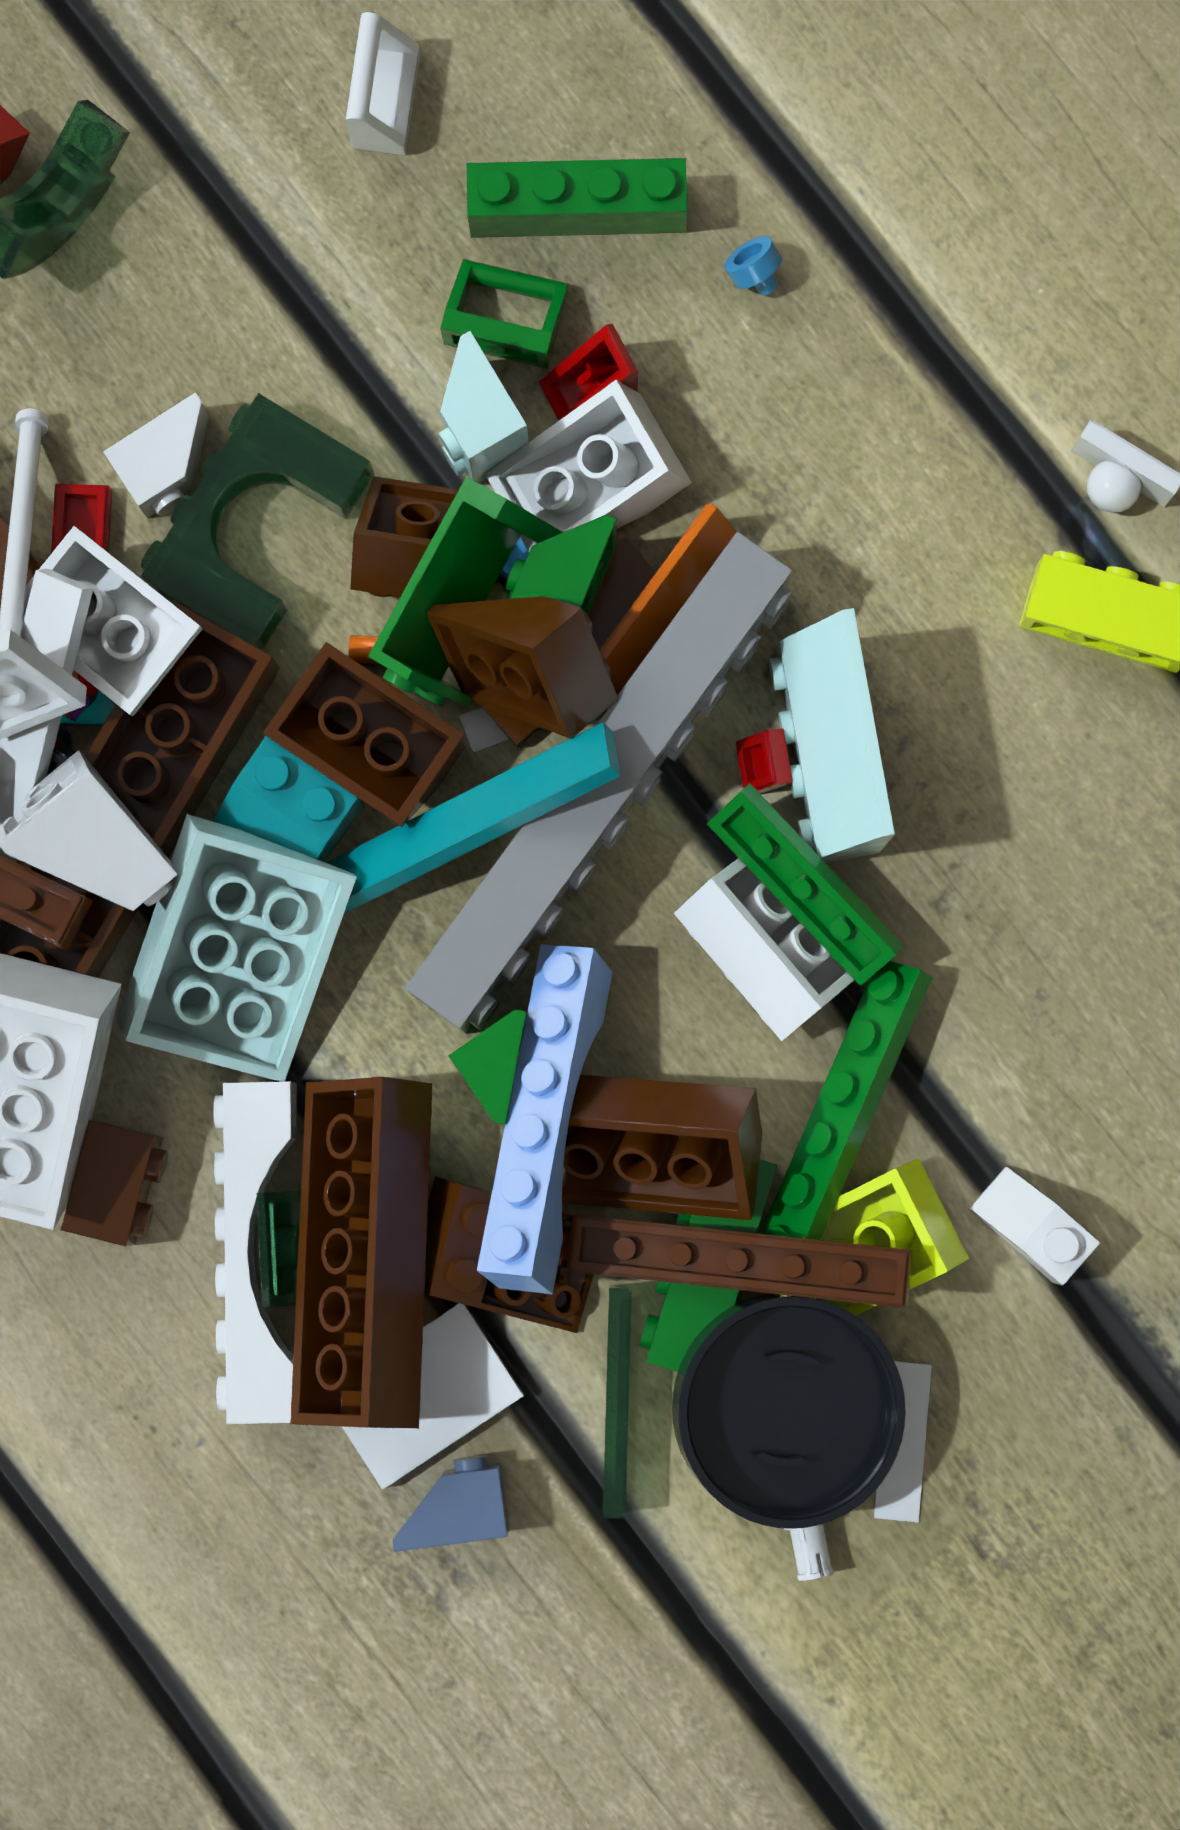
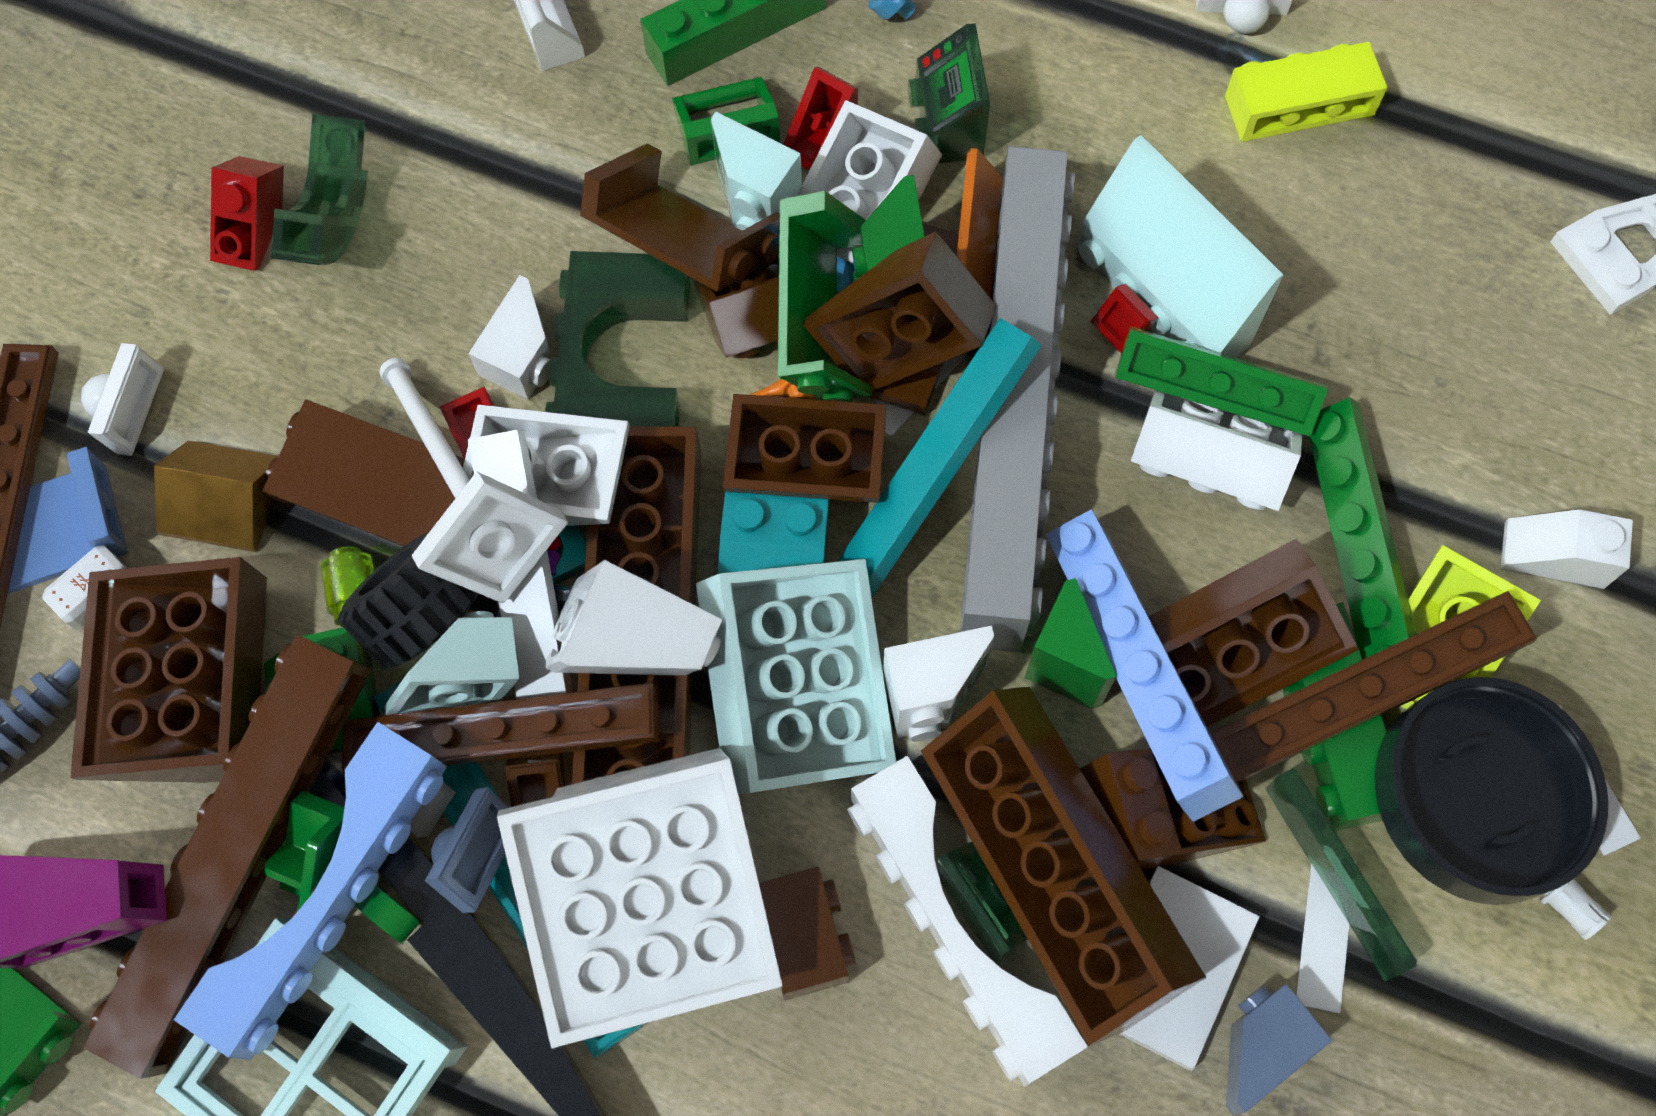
camera: 35 degrees left, 15 degrees down
(351, 1027) = (932, 680): none -> white slope
(376, 417) = (630, 204): none -> reddish brown panel
(571, 1449) = (1322, 949): none -> white sticker
(734, 427) = (952, 95): none -> clear green slope

